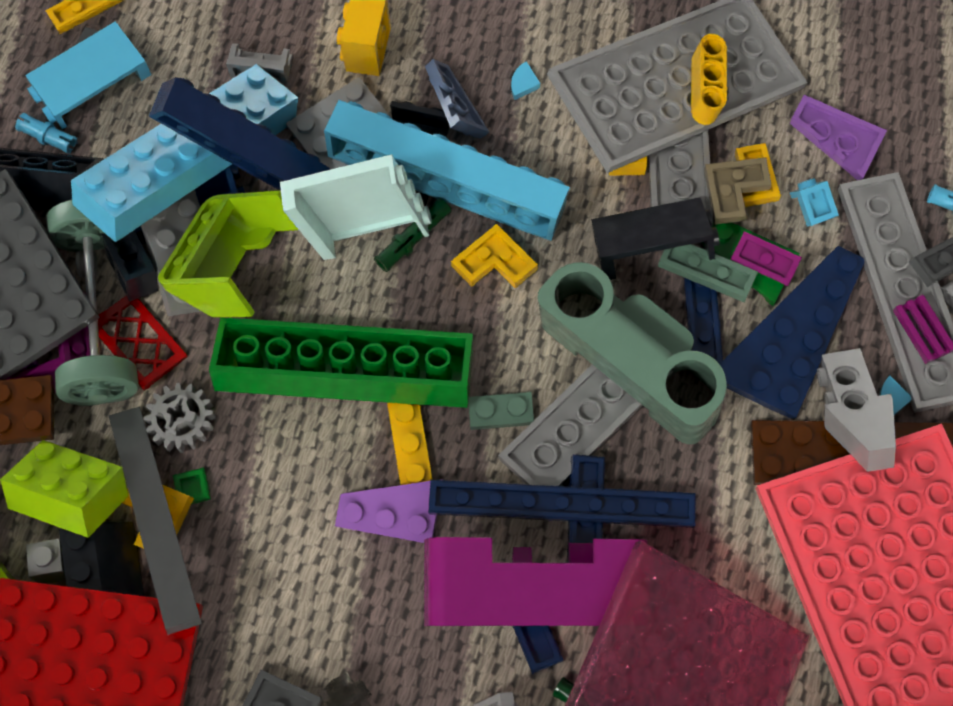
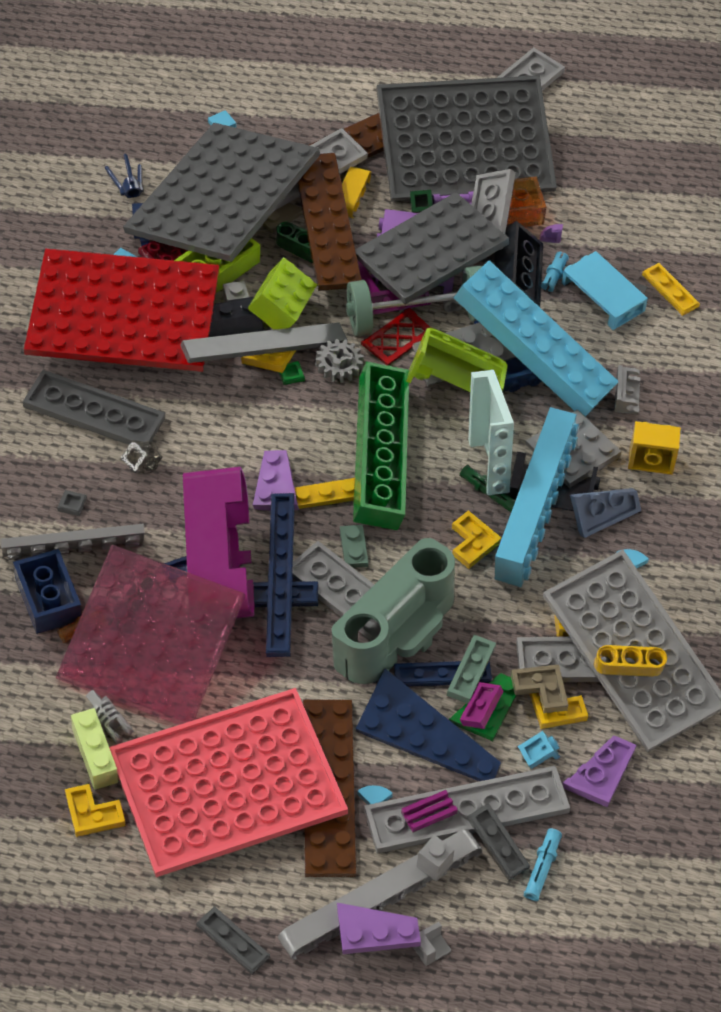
camera: 80 degrees right, 15 degrees down
(131, 265) = (449, 318): black brick -> none
(230, 134) = (538, 363): dark blue brick -> none
(653, 231) = (496, 628): black panel -> none
(855, 412) = (352, 754): light grey brick -> none

